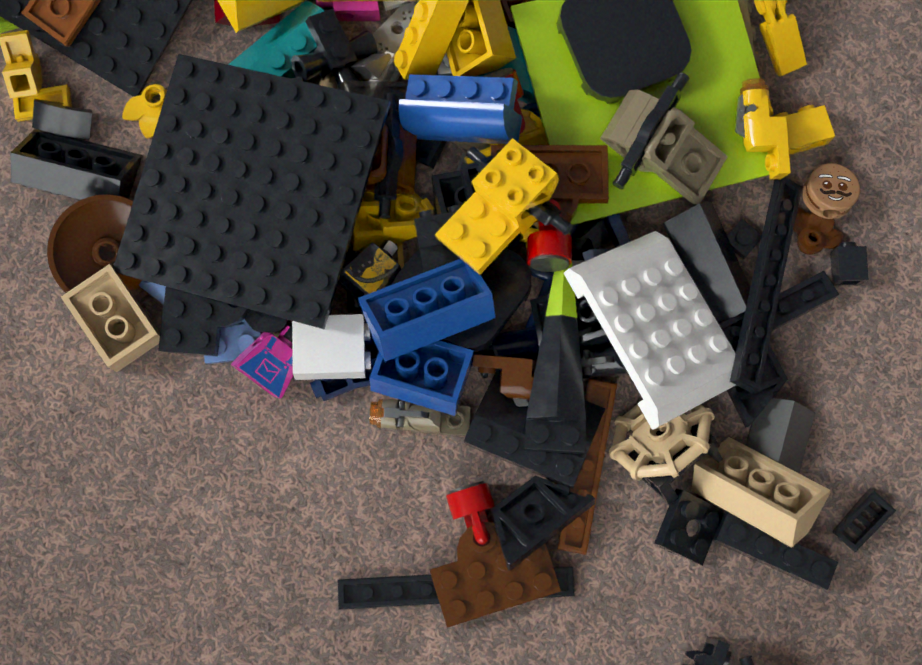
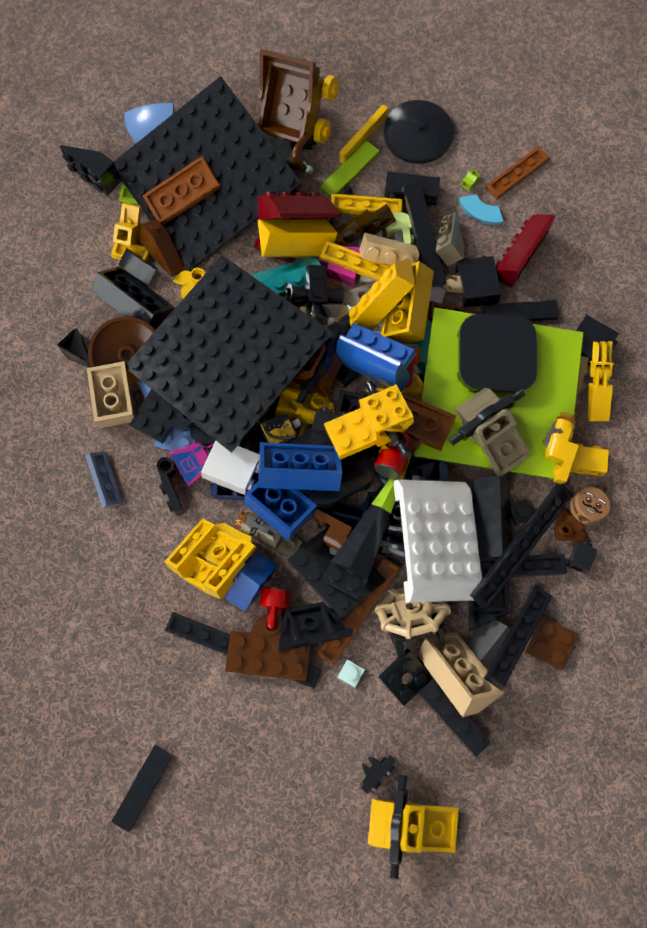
camera: 25 degrees right, 5 degrees down
(28, 275) = (74, 348): none -> black slope
(83, 77) = (160, 246): none -> reddish brown slope
(157, 441) = (104, 479): none -> sand blue plate
(250, 412) = (167, 487): none -> black plate
(359, 482) = (211, 557): none -> yellow slope
(425, 491) = (250, 581): none -> blue brick
(614, 553) = (351, 673): none -> light aqua plate
(814, 410) = (517, 638): none -> black tile
(857, 396) = (551, 643): none -> reddish brown plate
(878, 521) = (539, 724): black slope -> none

